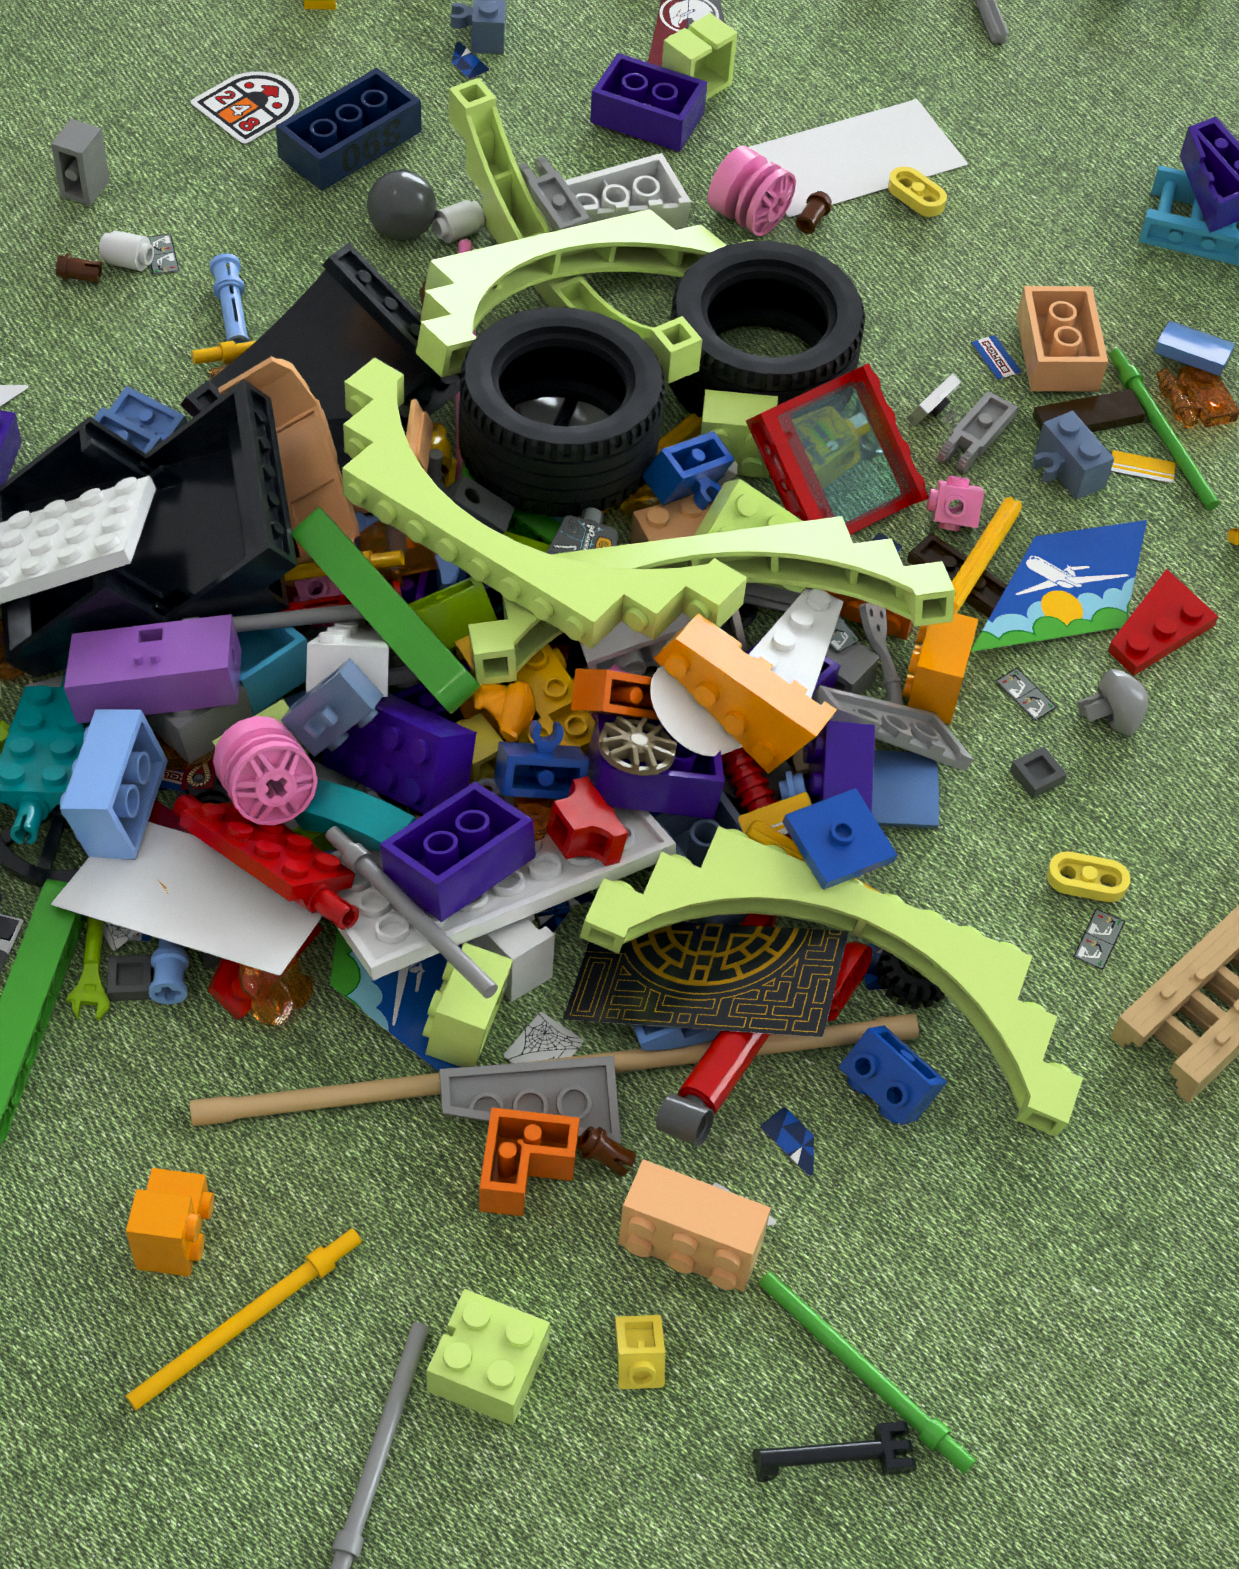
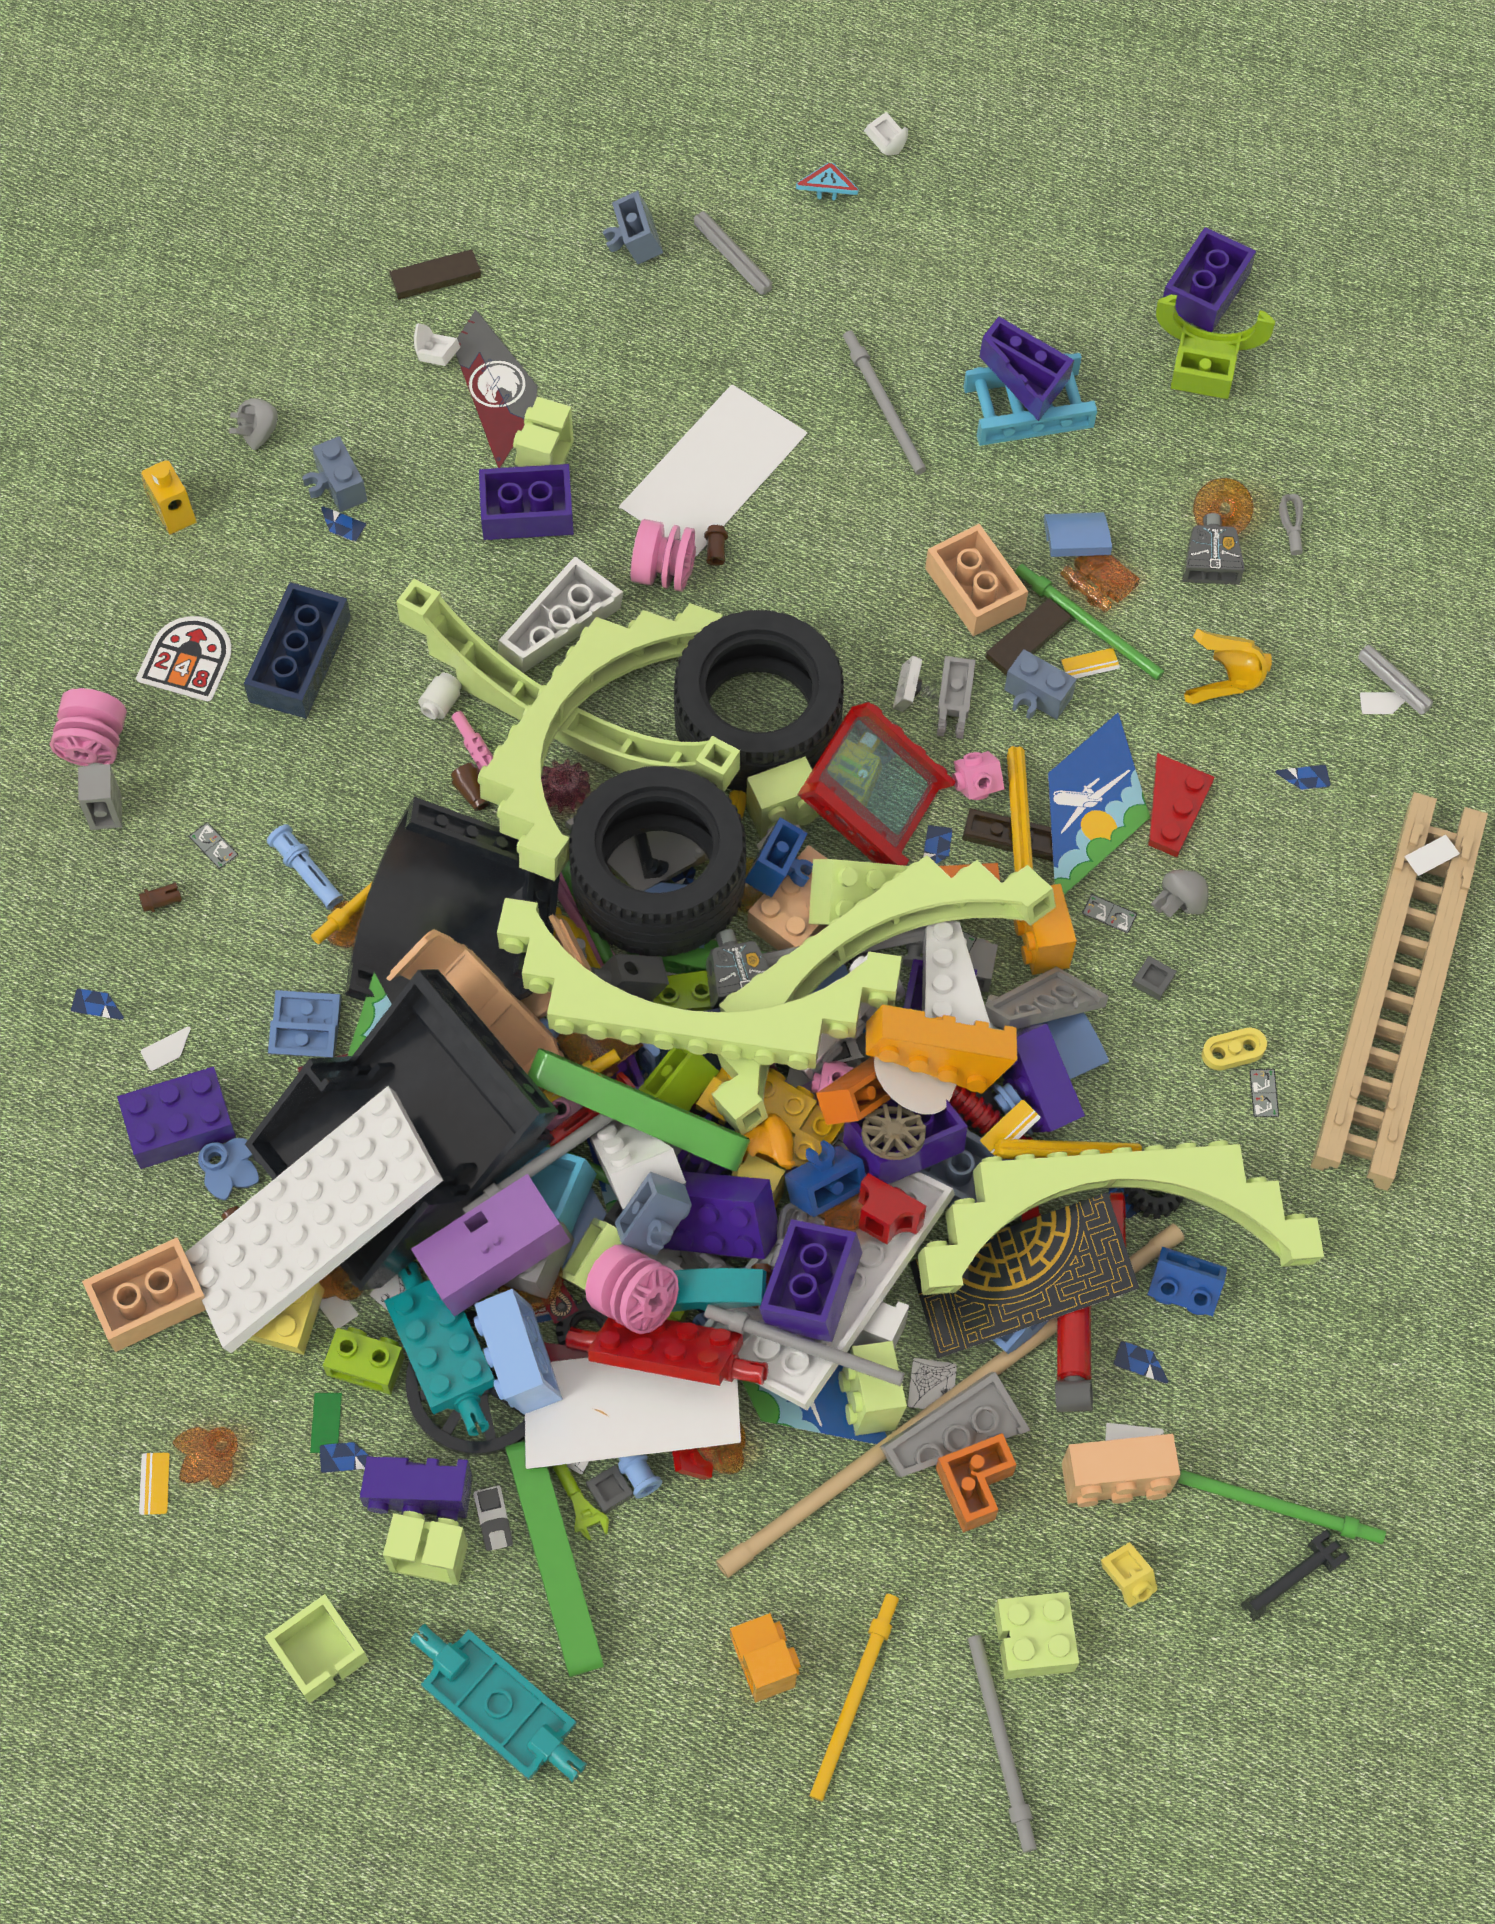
camera: 25 degrees left, 10 degrees up
(114, 101) = (88, 727): none -> bright pink wheel
(126, 250) = (188, 860): white brick -> none
(401, 205) = (390, 707): dark grey piece -> none
(553, 196) = (520, 648): light grey hinge -> none
(605, 1150) = (1026, 1443): reddish brown pin -> none
(839, 838) = (1068, 1126): blue plate -> none
(875, 628) = (985, 927): light grey piece -> none
(917, 191) = (787, 484): light yellow plate -> none
(996, 357) = (929, 615): sticker -> none
(1059, 126) = (861, 359): none -> light grey bar

